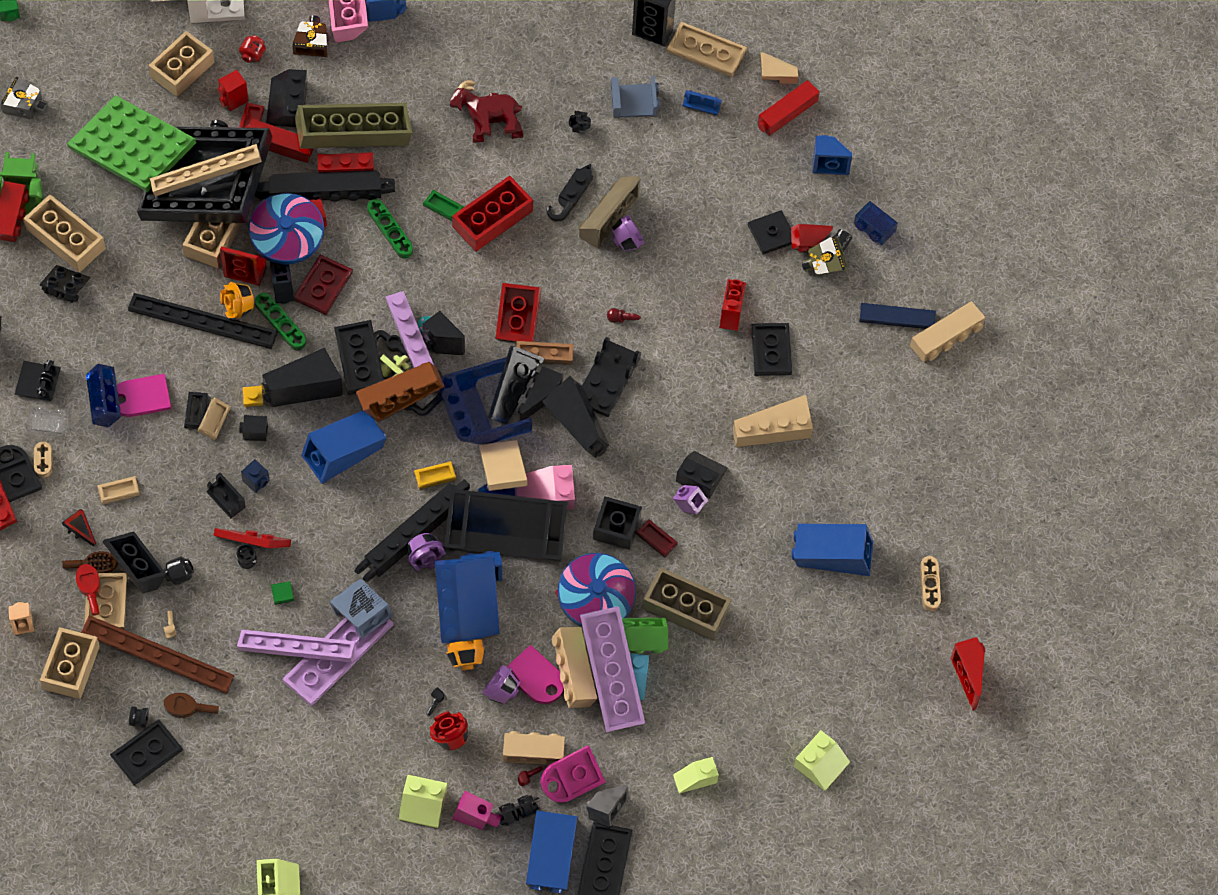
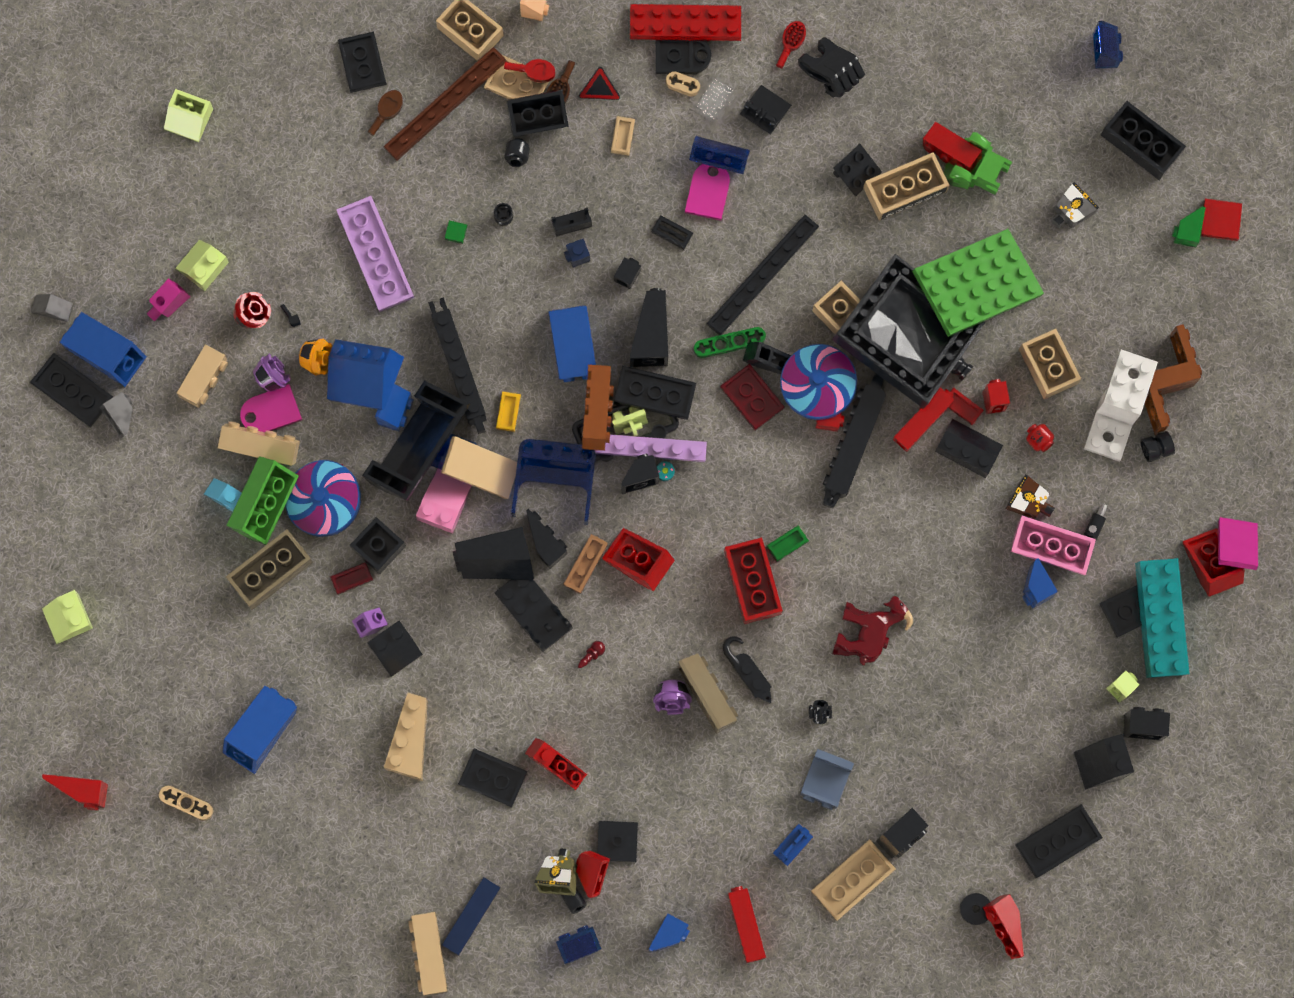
camera: 115 degrees right, 15 degrees up
(138, 717) = (395, 66): black wheel -> none
(170, 630) = (465, 126): tan hand -> none
(205, 170) = (904, 326): tan plate -> none
(214, 418) = (654, 243): tan tile -> none
(237, 299) = (764, 309): light orange cone -> none
(242, 266) = (799, 328): red slope -> none
(252, 396) = (665, 284): yellow plate -> none
(252, 537) = (512, 230): red wing -> none
(296, 645) = (393, 218): lavender plate -> none
(345, 162) = (867, 468): red brick -> none
(353, 125) = (904, 489): olive brick -> none
(362, 608) = (402, 285): sand blue panel -> none
(389, 229) = (784, 484): green beam -> none
(424, 551) = (430, 364): medium lavender cone -> none
(516, 374) = (562, 517): black wing -> none
(523, 778) = (182, 358): dark red hand -> none
(525, 802) = (154, 336): black hinge -> none
(573, 775) = (159, 395): dark pink tile -> none
(612, 669) = (232, 468): lavender plate -> none
(696, 775) = (108, 503): yellowish green slope -> none
(776, 69) = (798, 938): tan slope -> none

